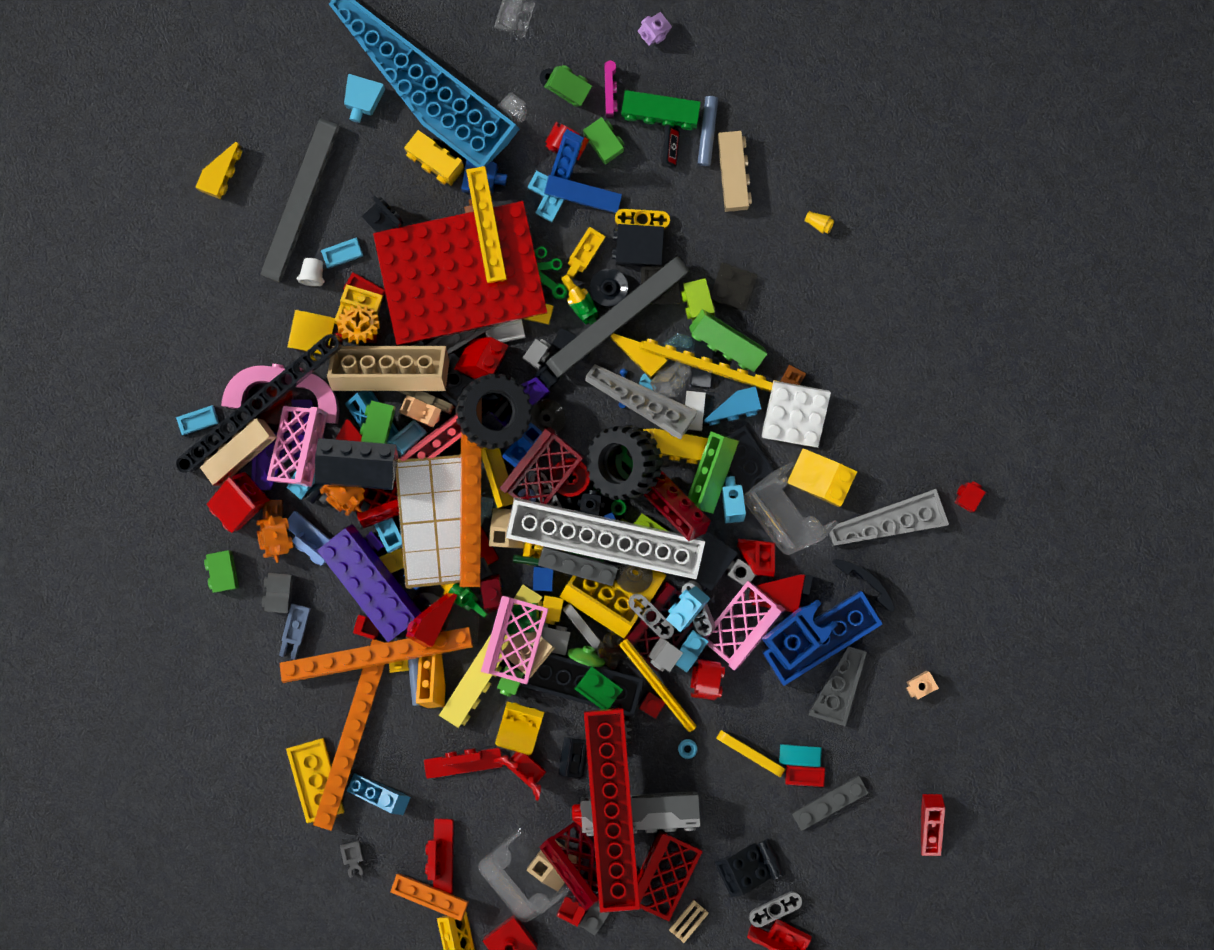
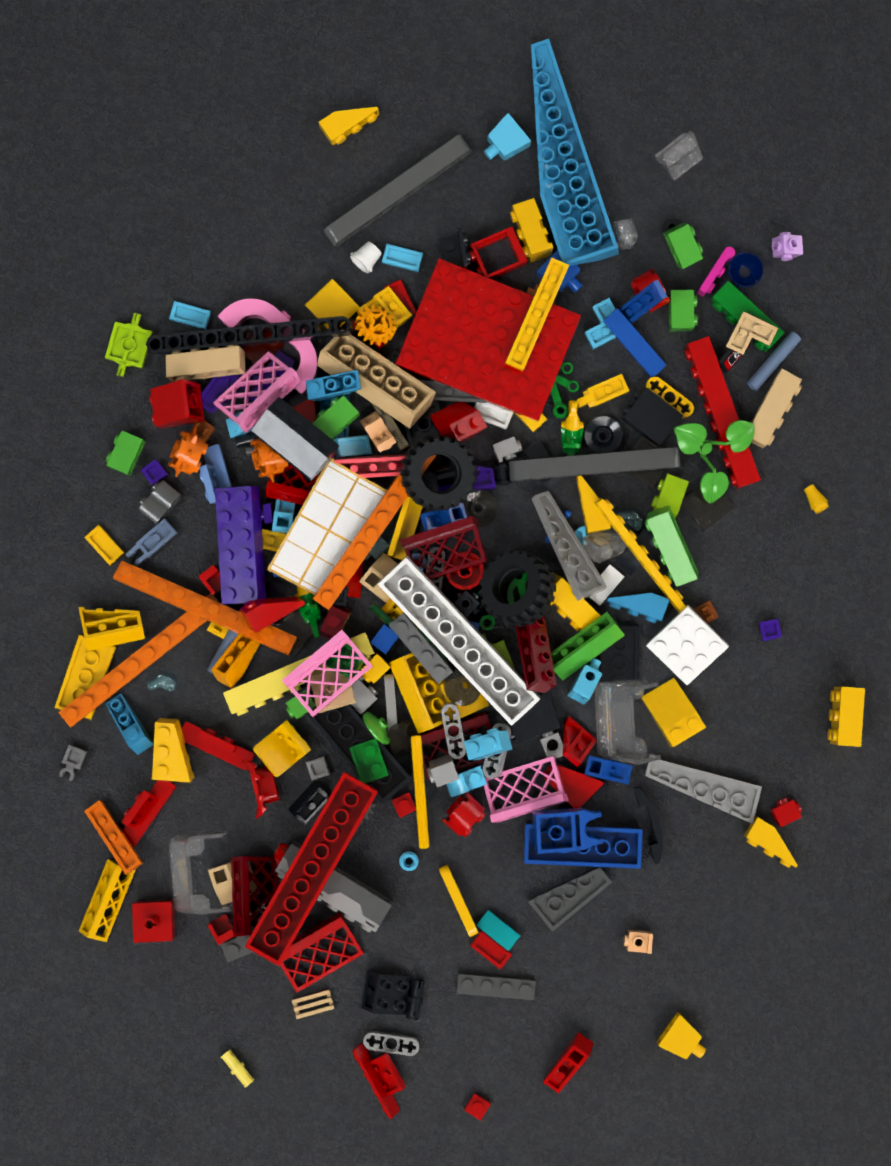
camera: 30 degrees right, 0 degrees up
(162, 480) = (128, 345): none -> lime plate
(256, 571) = (154, 472): none -> dark purple plate
(256, 659) = (104, 545): none -> yellow tile
(308, 725) = (110, 627): none -> yellow wedge
(357, 398) = (333, 386): none -> dark azure slope
(382, 740) = (163, 682): none -> clear light blue arm
(428, 179) = (514, 243): none -> red window
(429, 795) = (170, 753): none -> yellow wedge
(560, 723) = (318, 768): none -> light grey tile
(637, 63) = (747, 261): none -> clear blue piece
(669, 117) = (748, 328): none -> tan plate
(684, 240) = (692, 440): none -> bright green plant
(694, 202) = (720, 408): none -> red brick
(801, 561) = (608, 769): none -> blue brick
(855, 355) = (770, 630): none -> dark purple plate
(881, 912) = (477, 1106): none -> red plate
(966, 383) = (846, 716): none -> yellow brick
(971, 528) = (767, 837): none -> yellow slope
(1010, 741) = (681, 1038): none -> yellow torso

